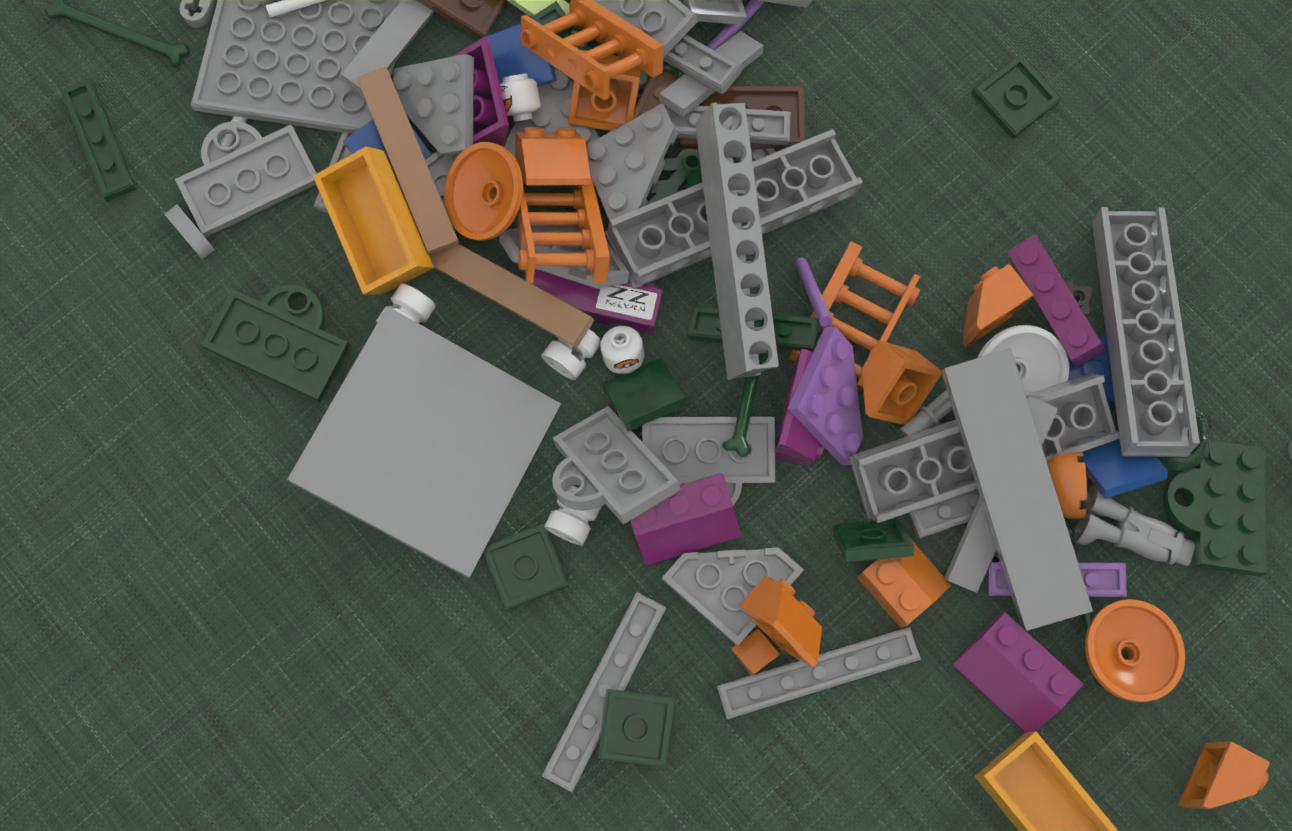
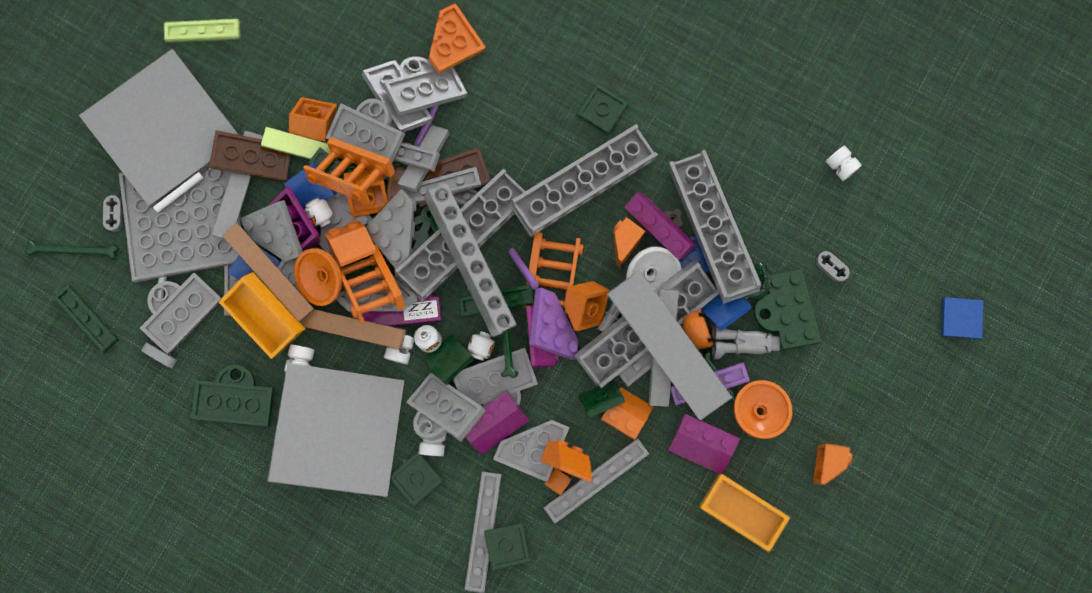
camera: 10 degrees left, 5 degrees up
(703, 391) = (481, 346): none -> white head
(952, 188) = (582, 180): none -> light grey tile

